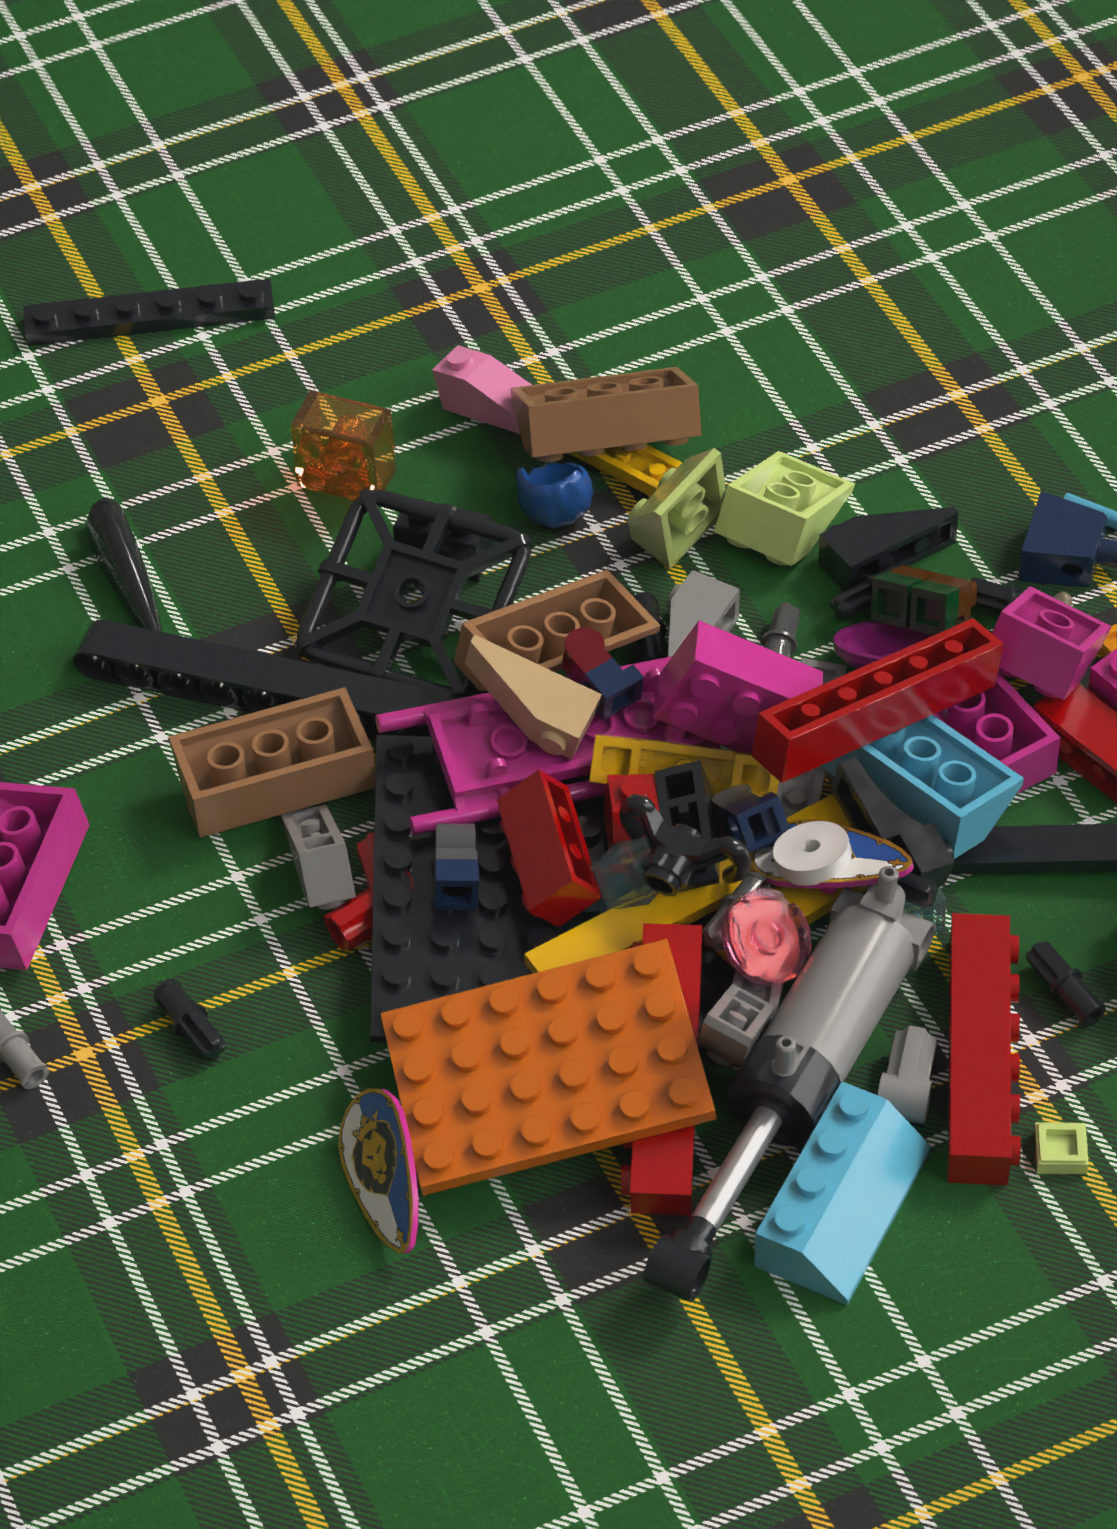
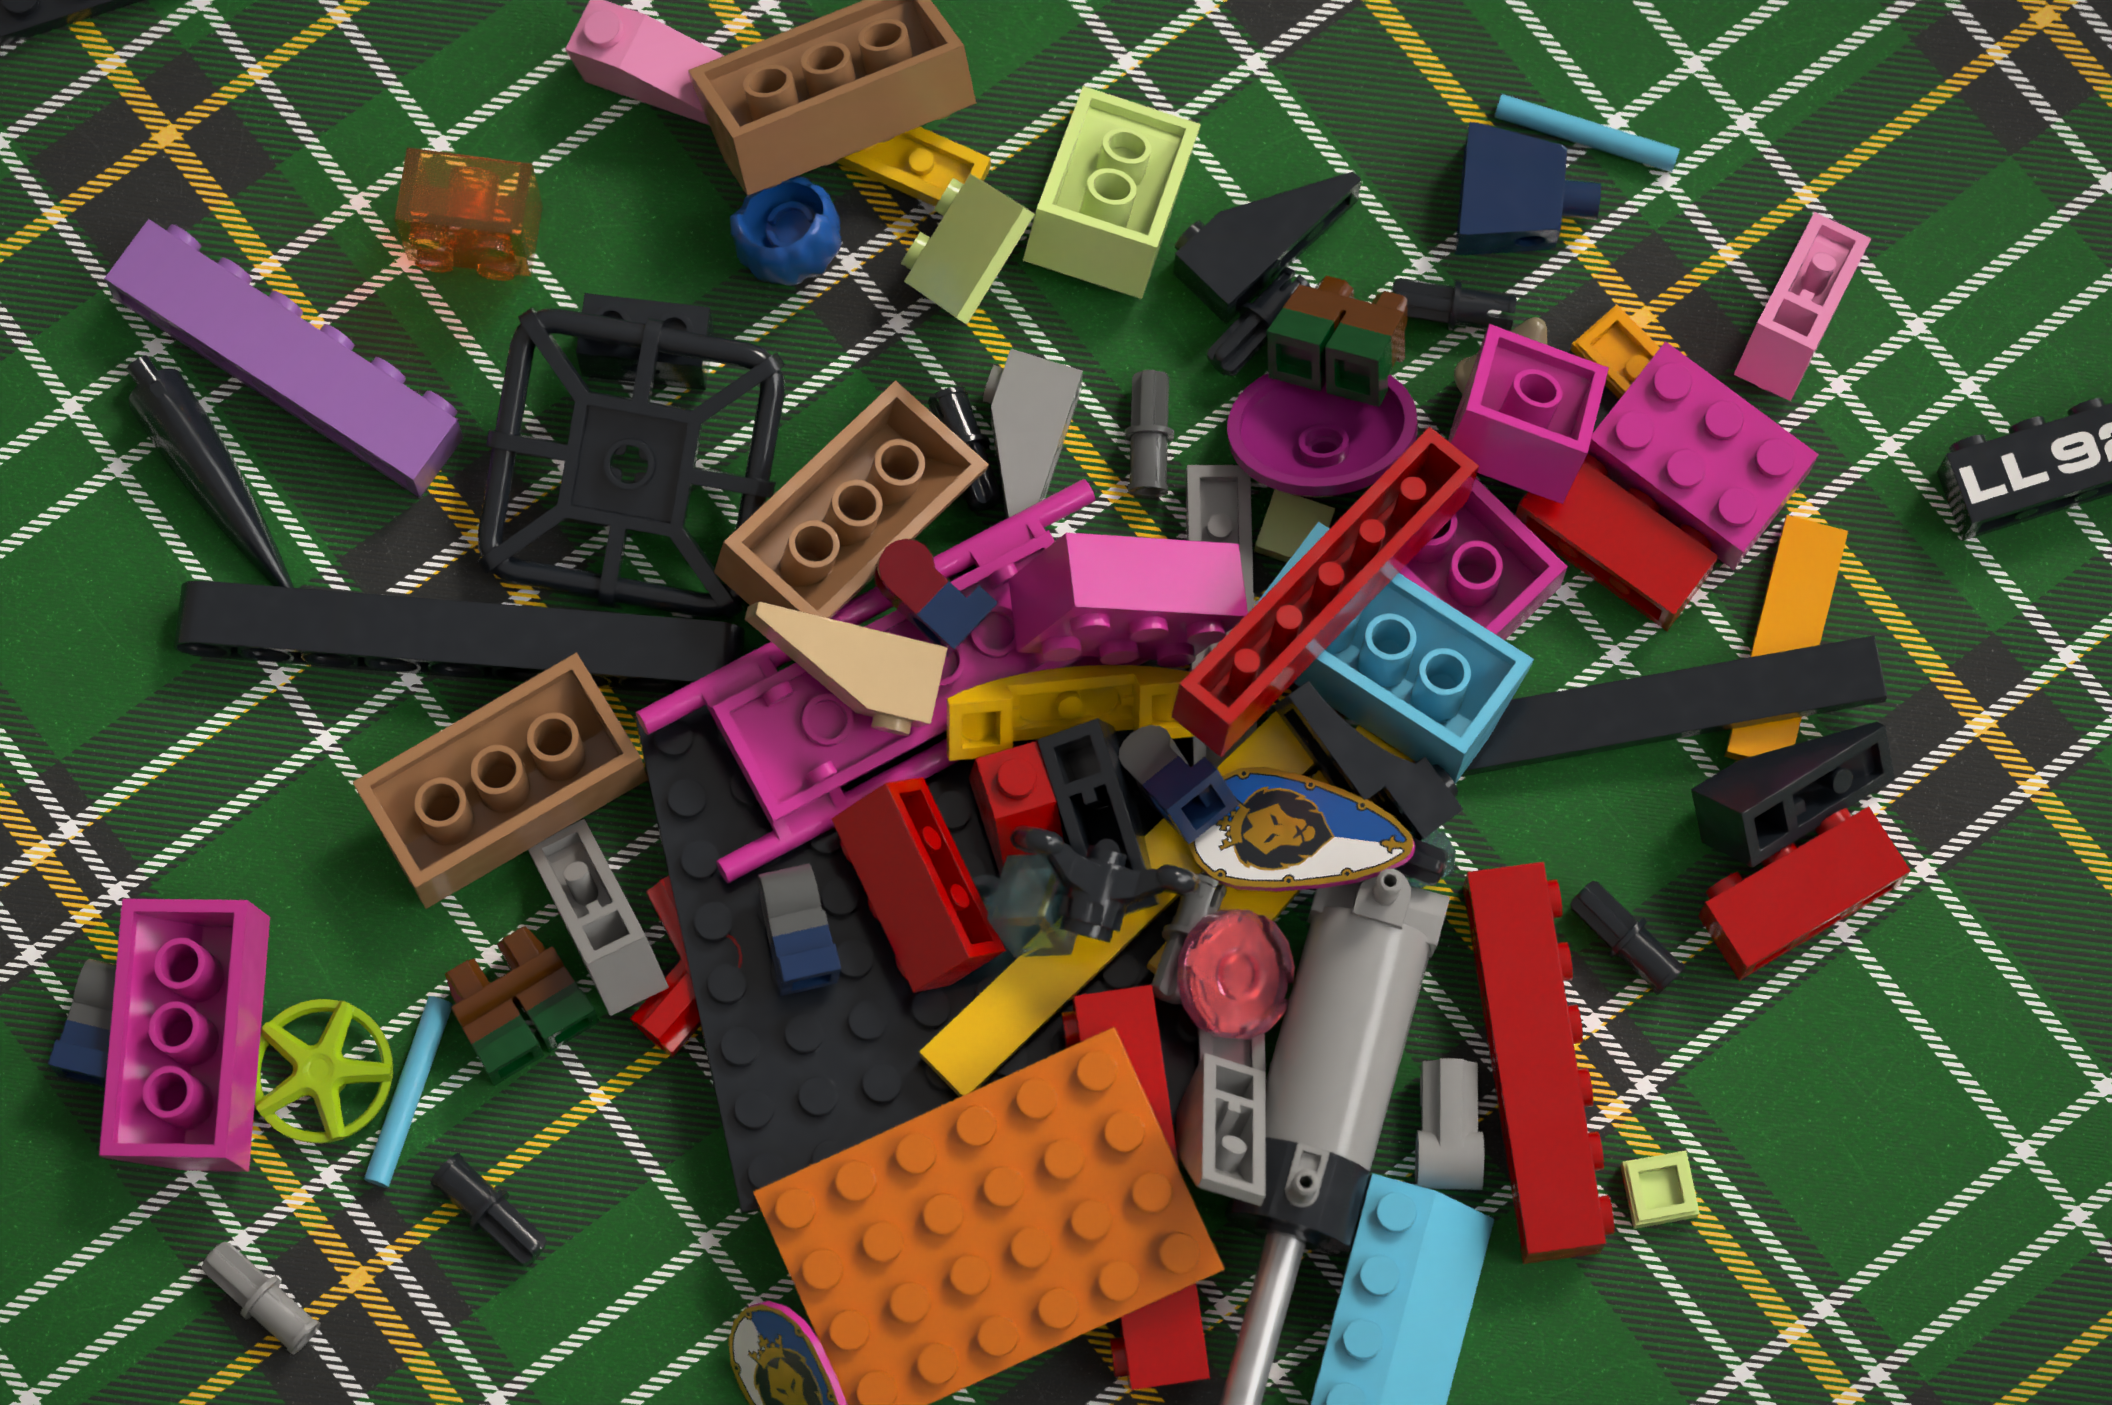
camera: 15 degrees left, 25 degrees up
(98, 920) = (322, 1070): none -> lime wheel
(154, 943) = (408, 1091): none -> medium azure bar
(199, 517) = (286, 357): none -> medium lavender brick
(248, 896) = (538, 985): none -> hips
(812, 852) = (1282, 864): white piece -> none

